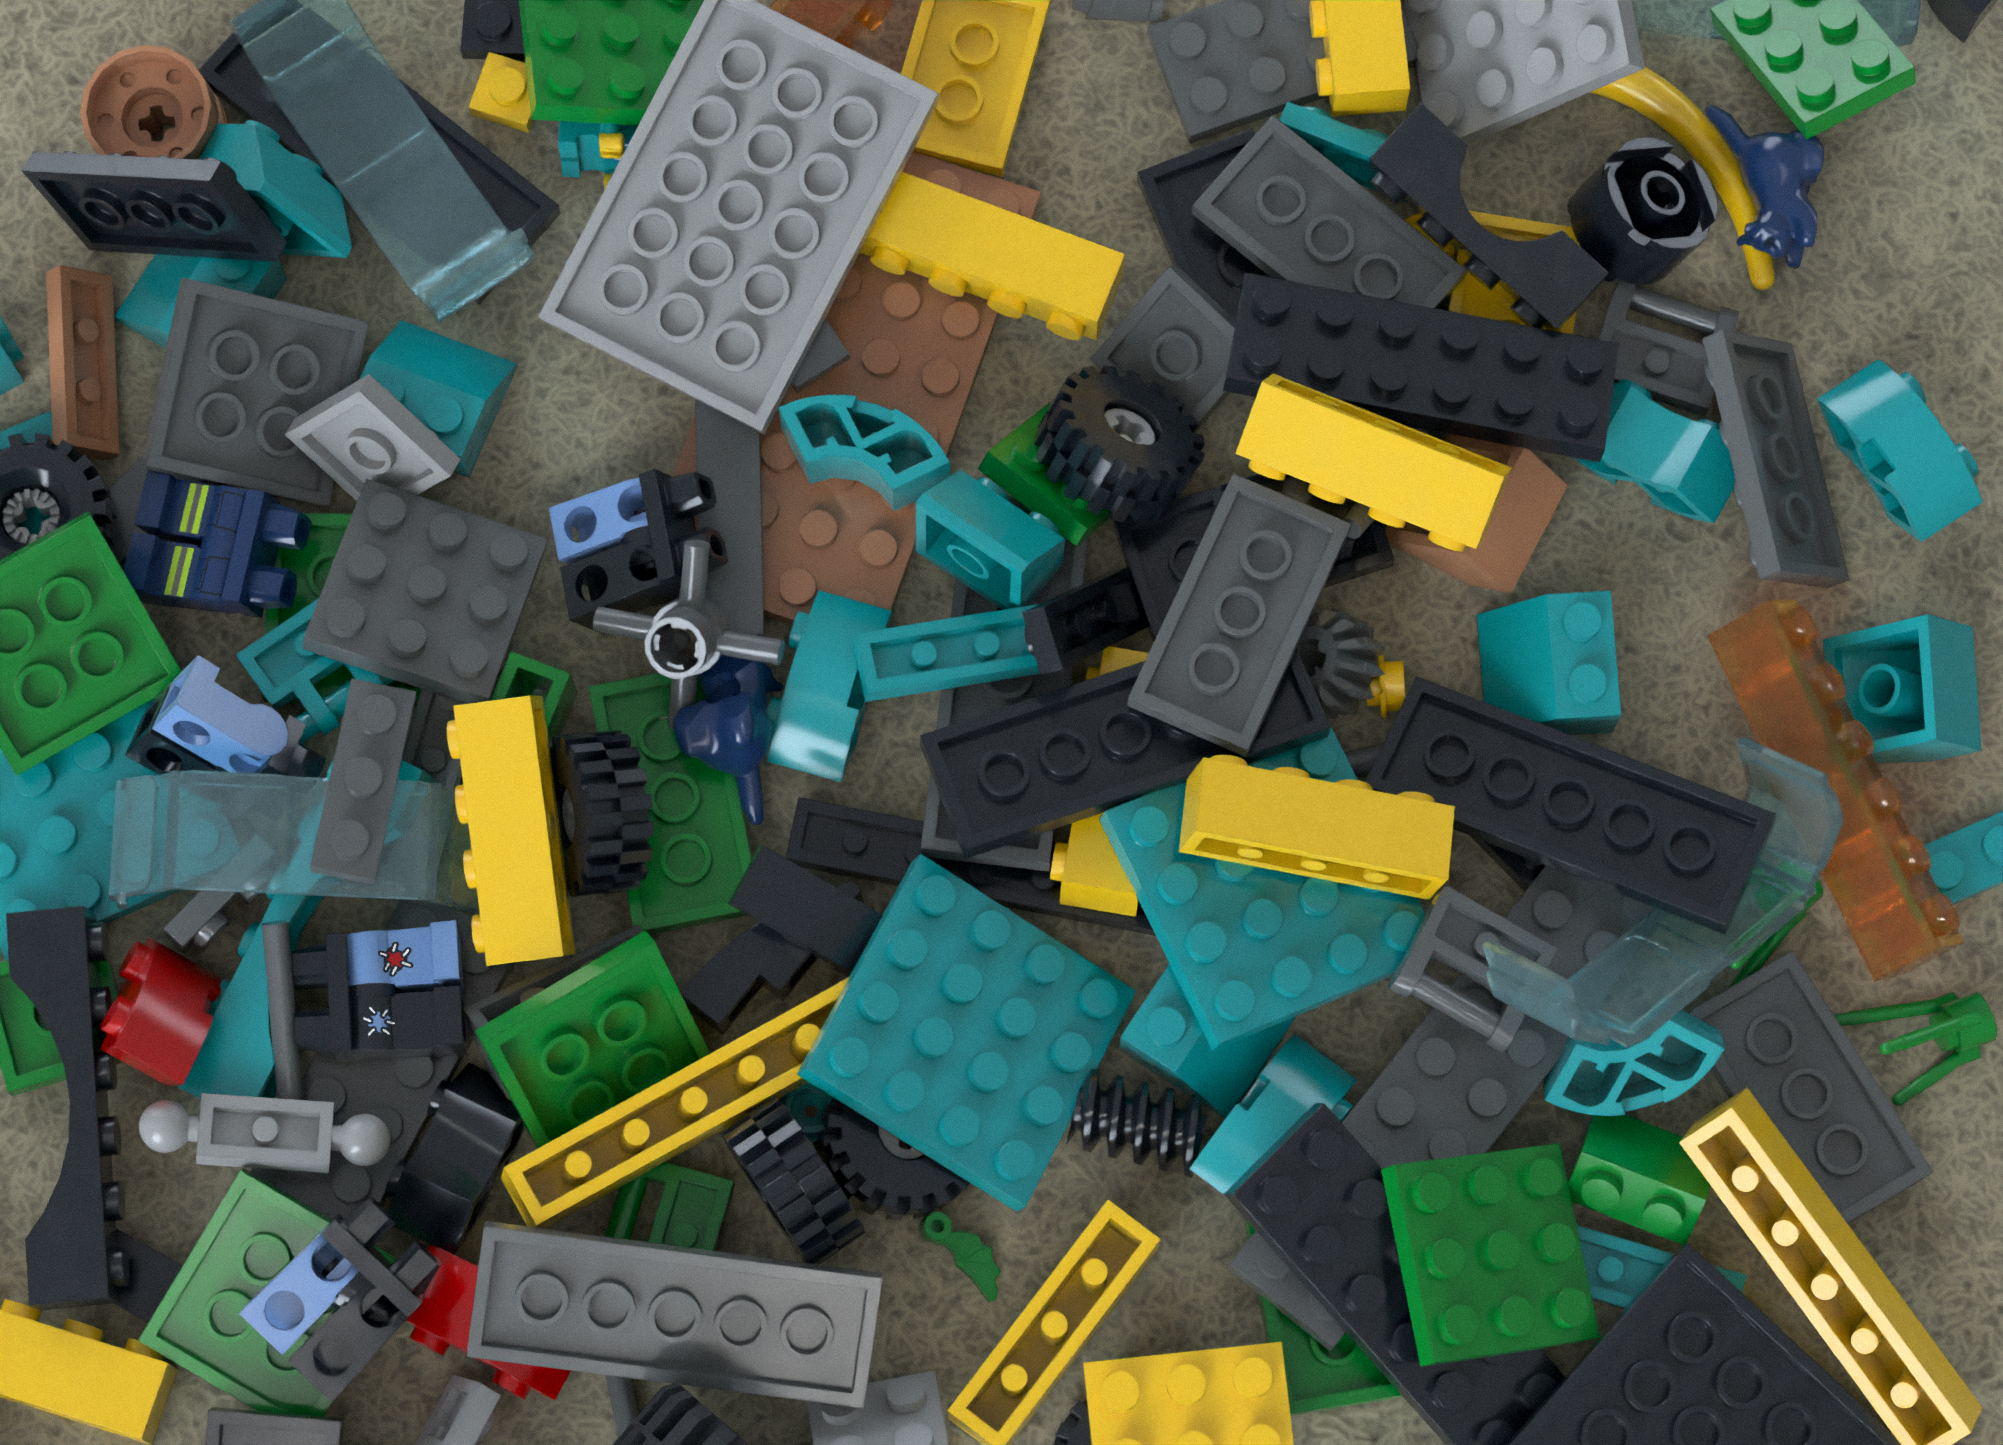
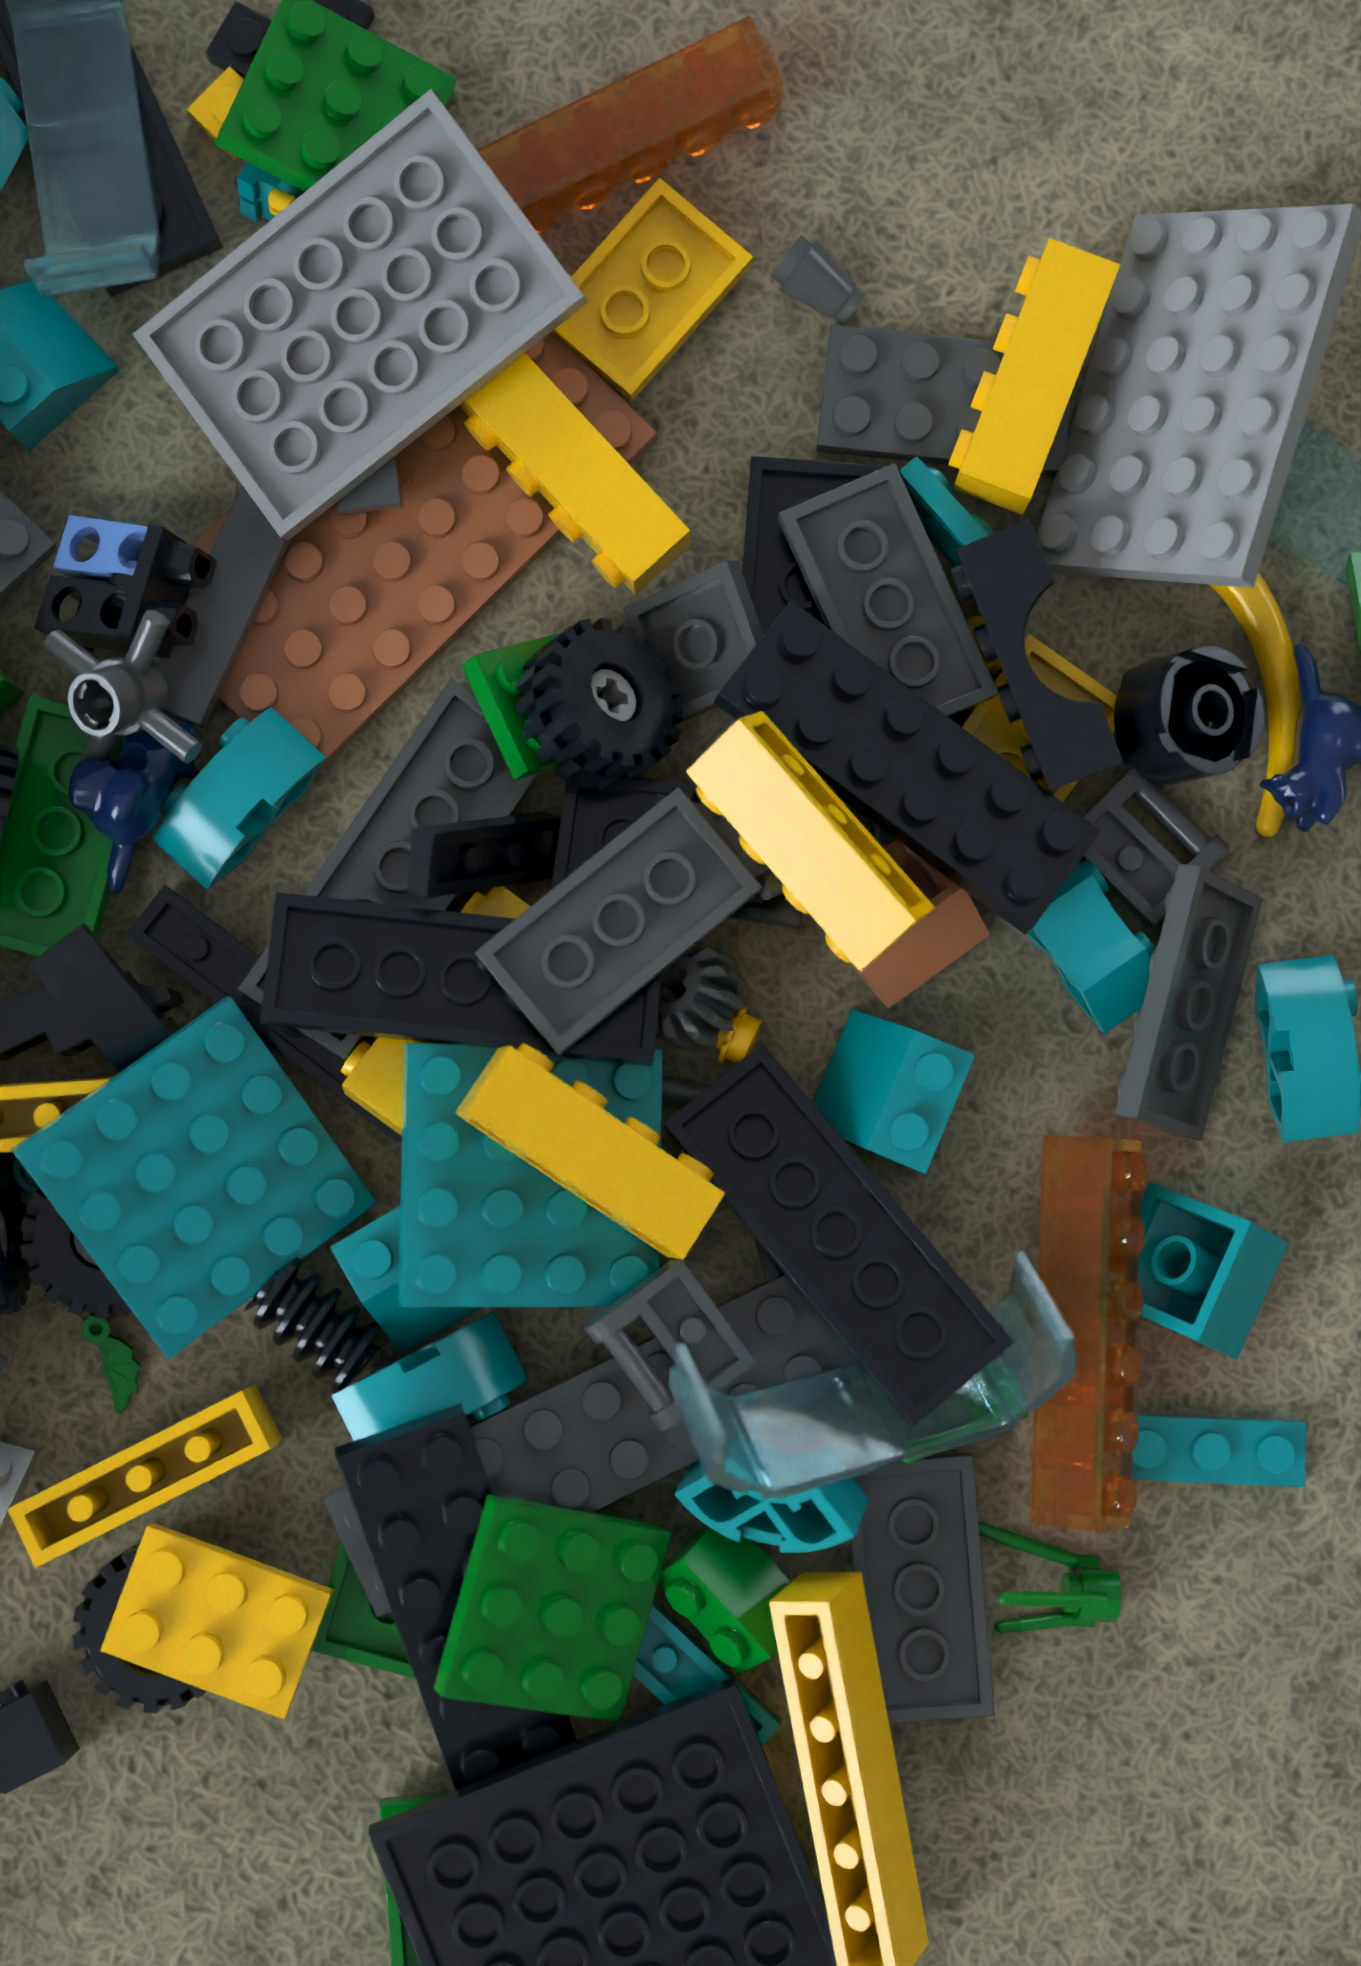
camera: 30 degrees right, 10 degrees up
(865, 444) = (367, 588): teal brick -> none
(943, 654) = (339, 821): teal plate -> none
(987, 540) = (437, 736): teal slope -> none

